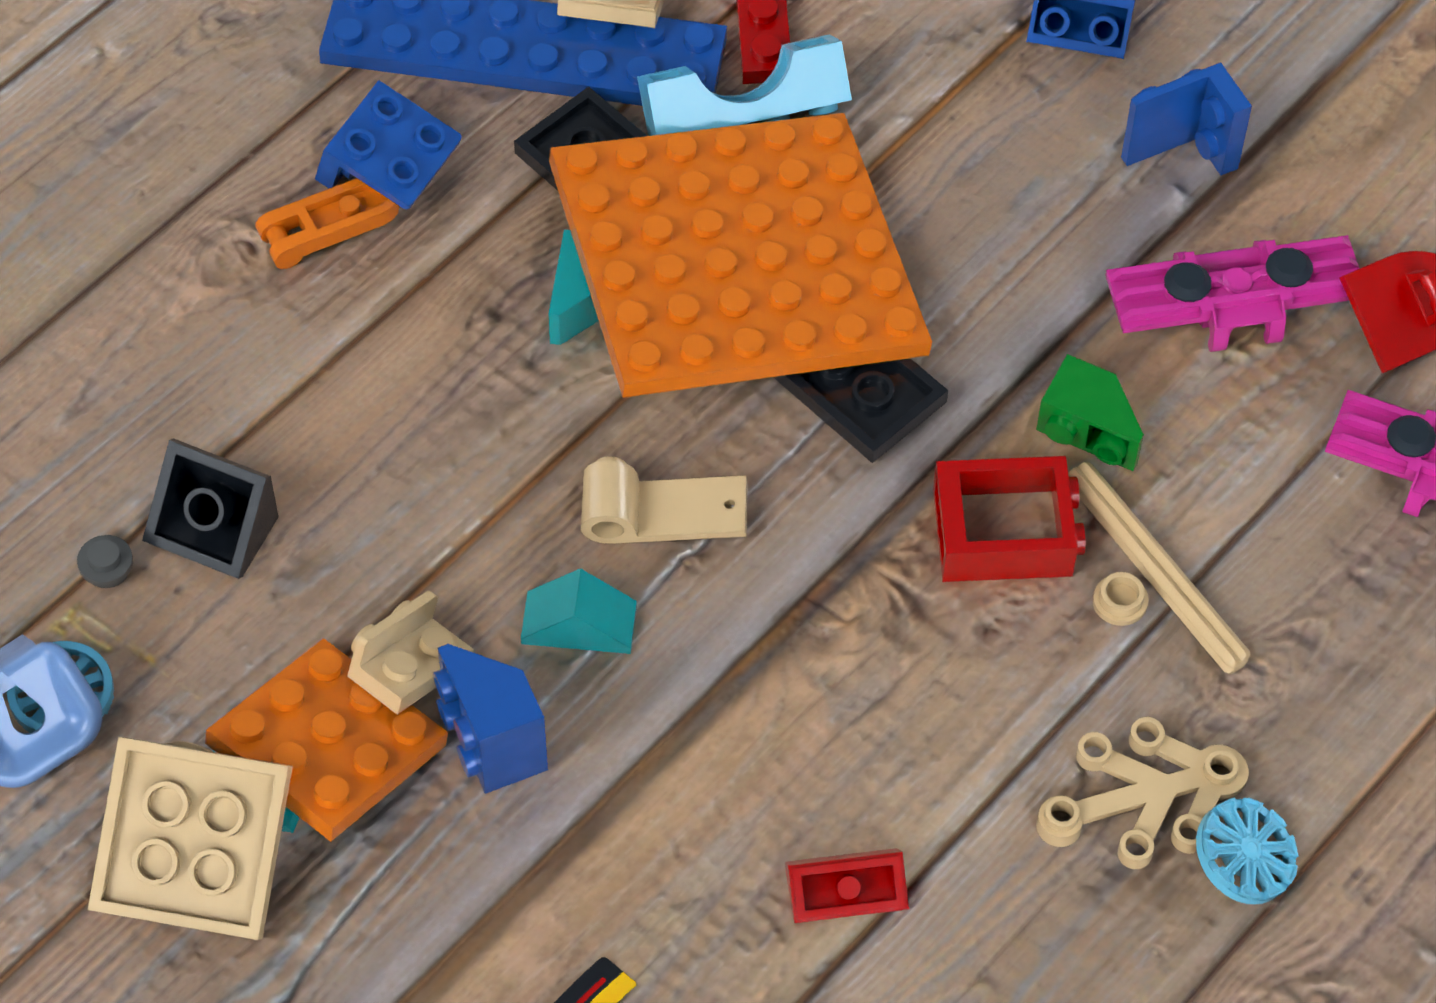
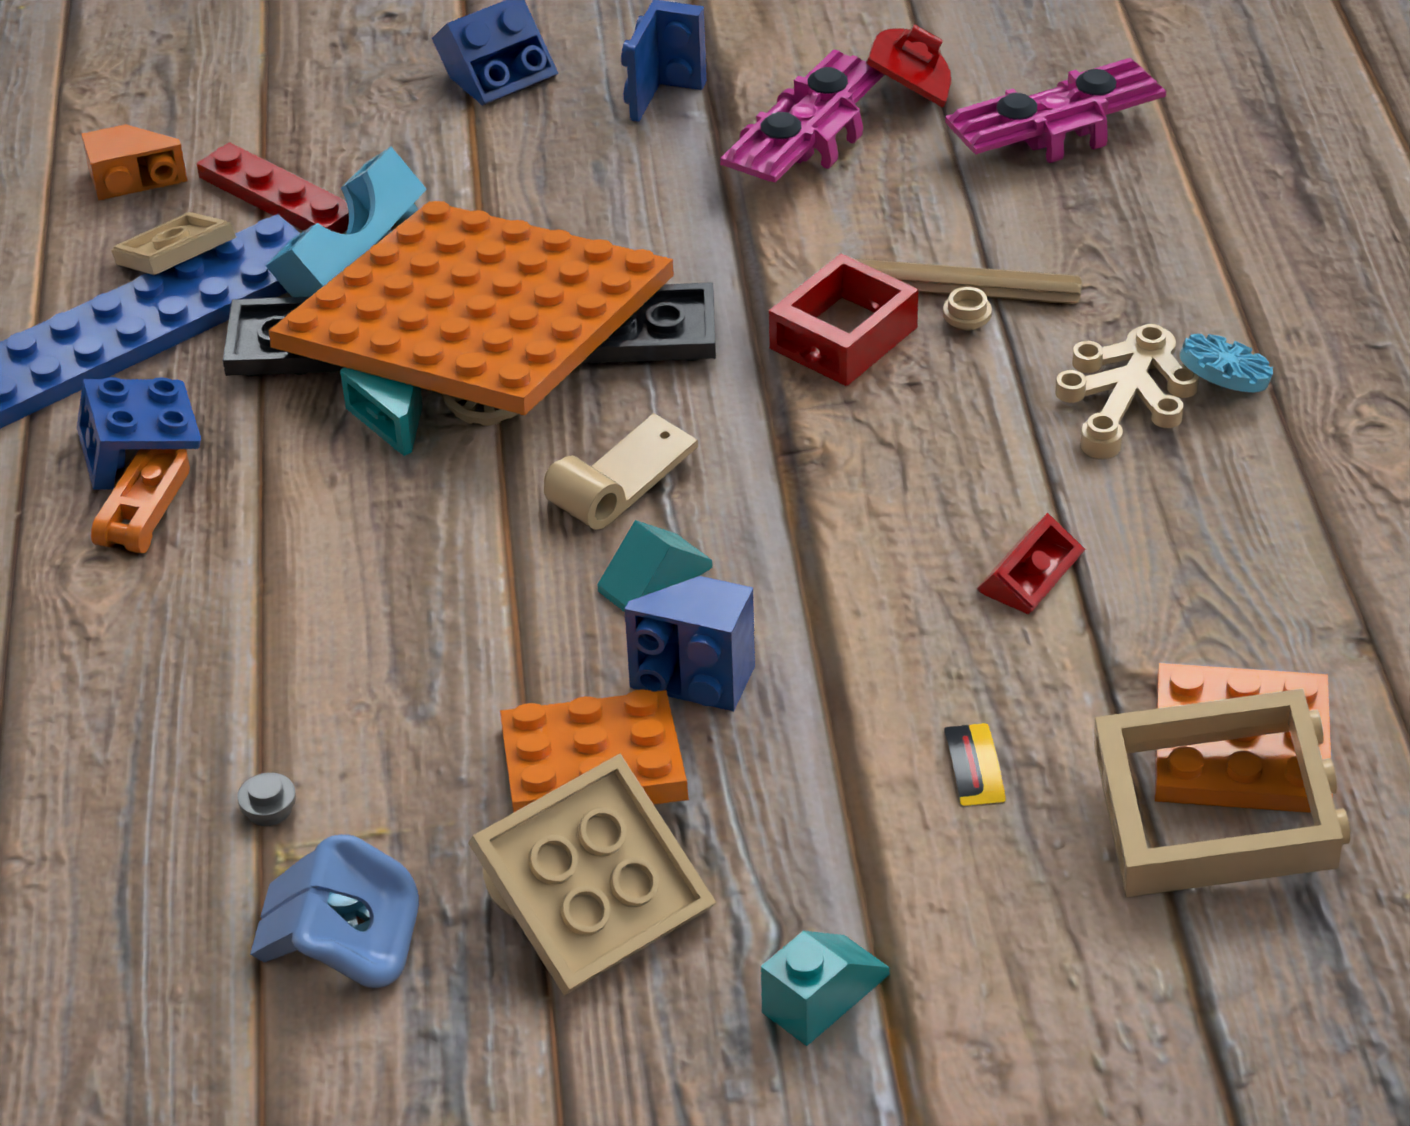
camera: 45 degrees left, 15 degrees down
(210, 509) = (307, 699): black slope -> none
(401, 653) = (581, 668): tan bracket -> none
(1091, 413) = (812, 232): green slope -> none

